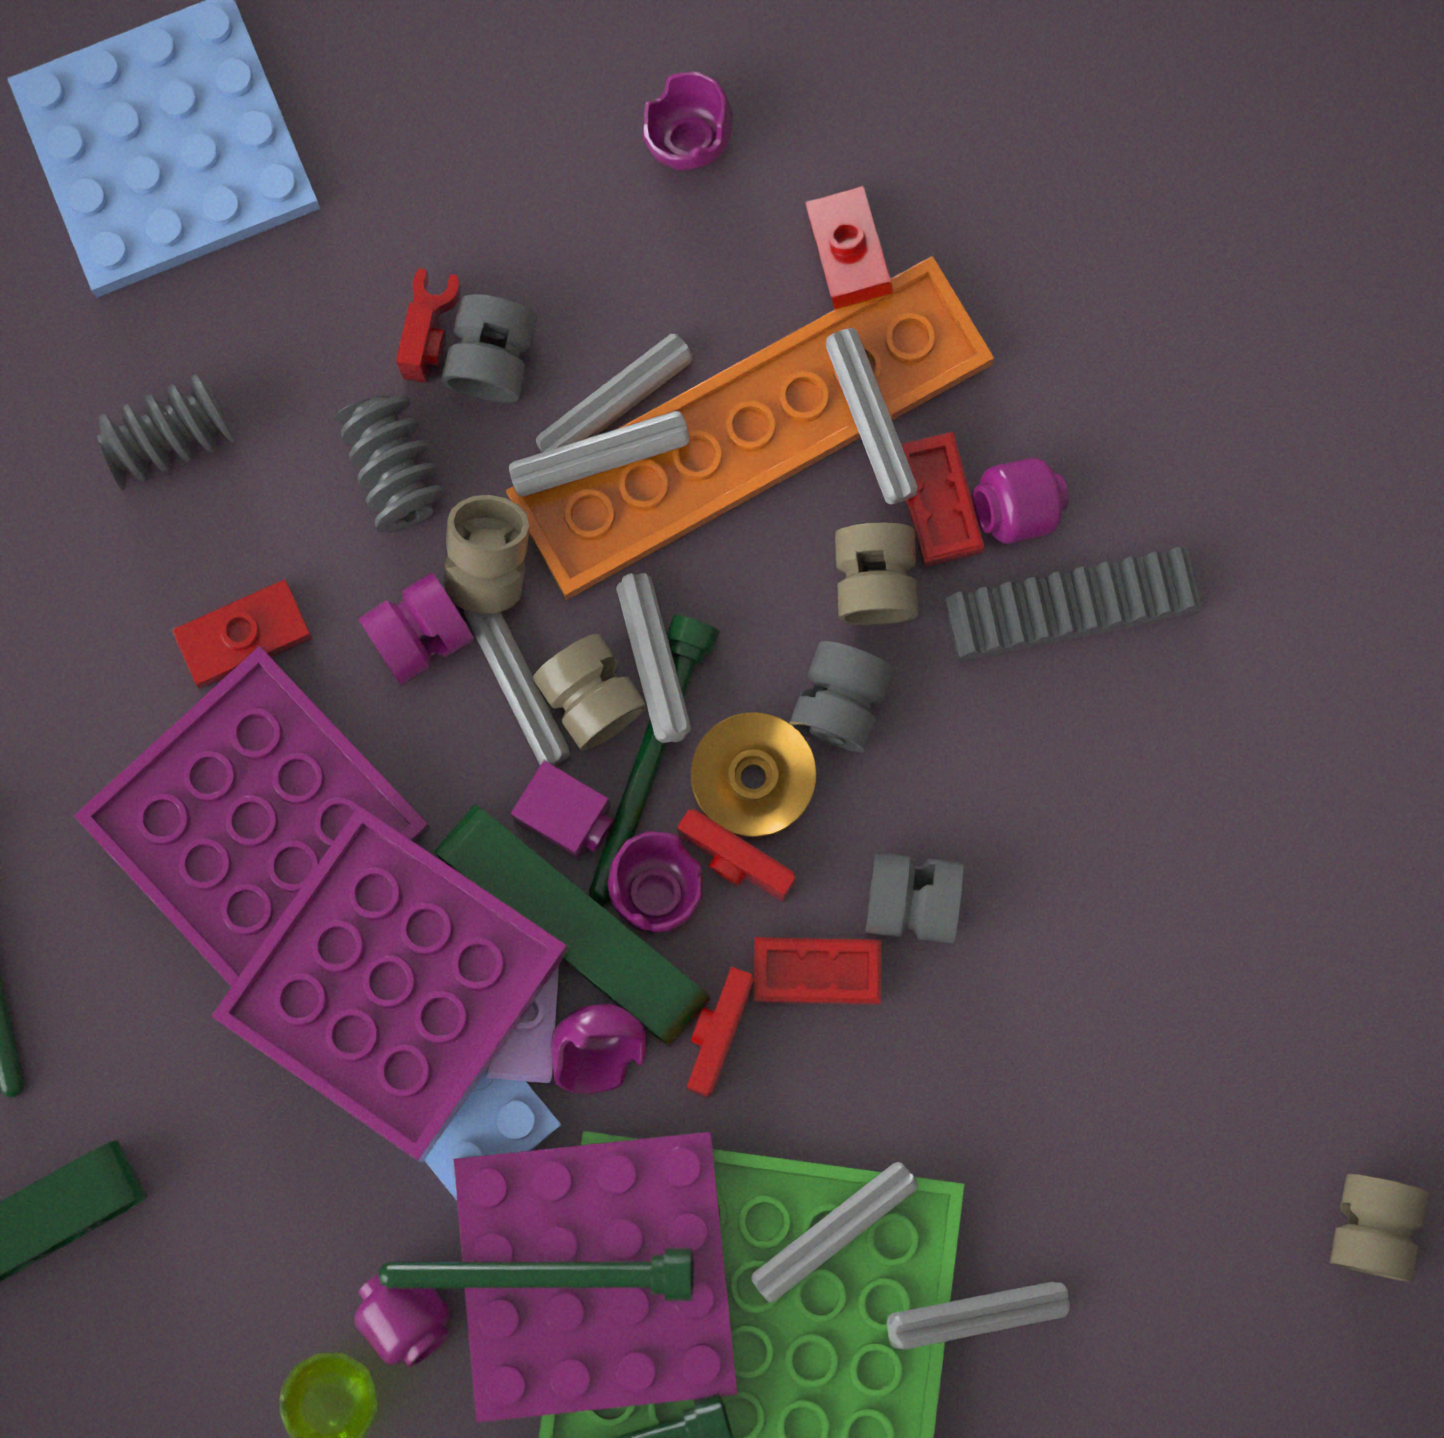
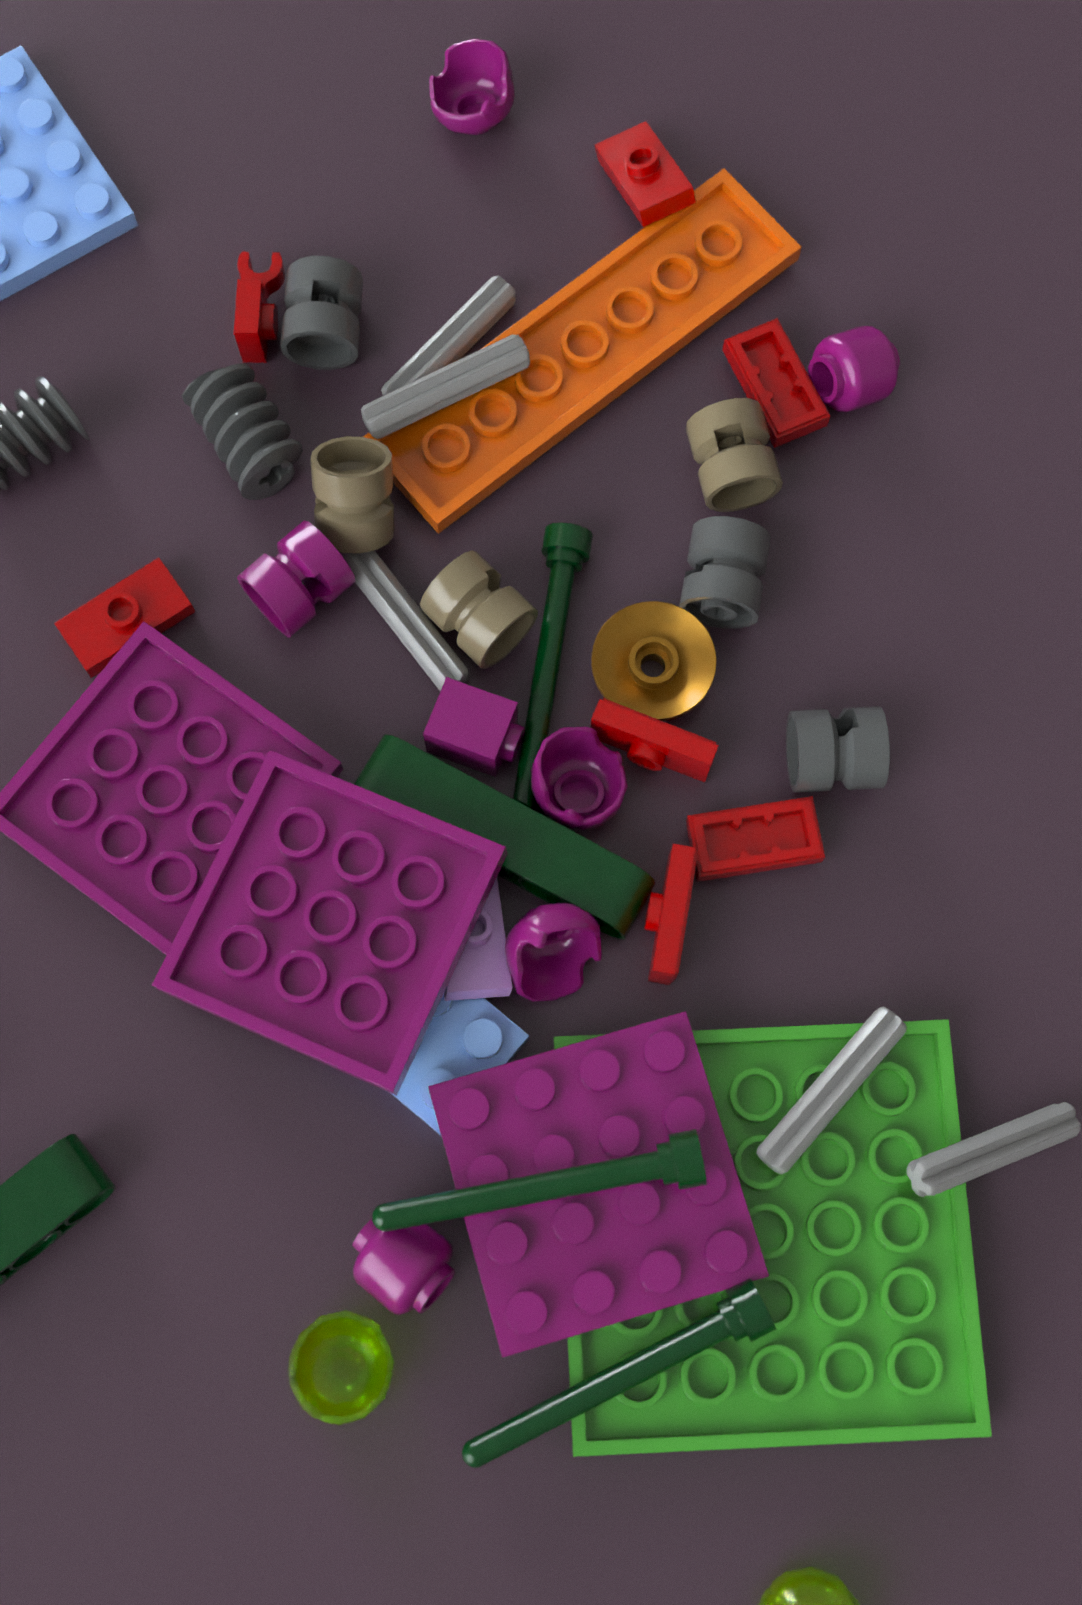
camera: 15 degrees left, 5 degrees down
(653, 658) = (535, 568): light grey axle -> none
(871, 416) = (699, 311): light grey axle -> none
(1072, 604) = (921, 457): dark grey gear -> none

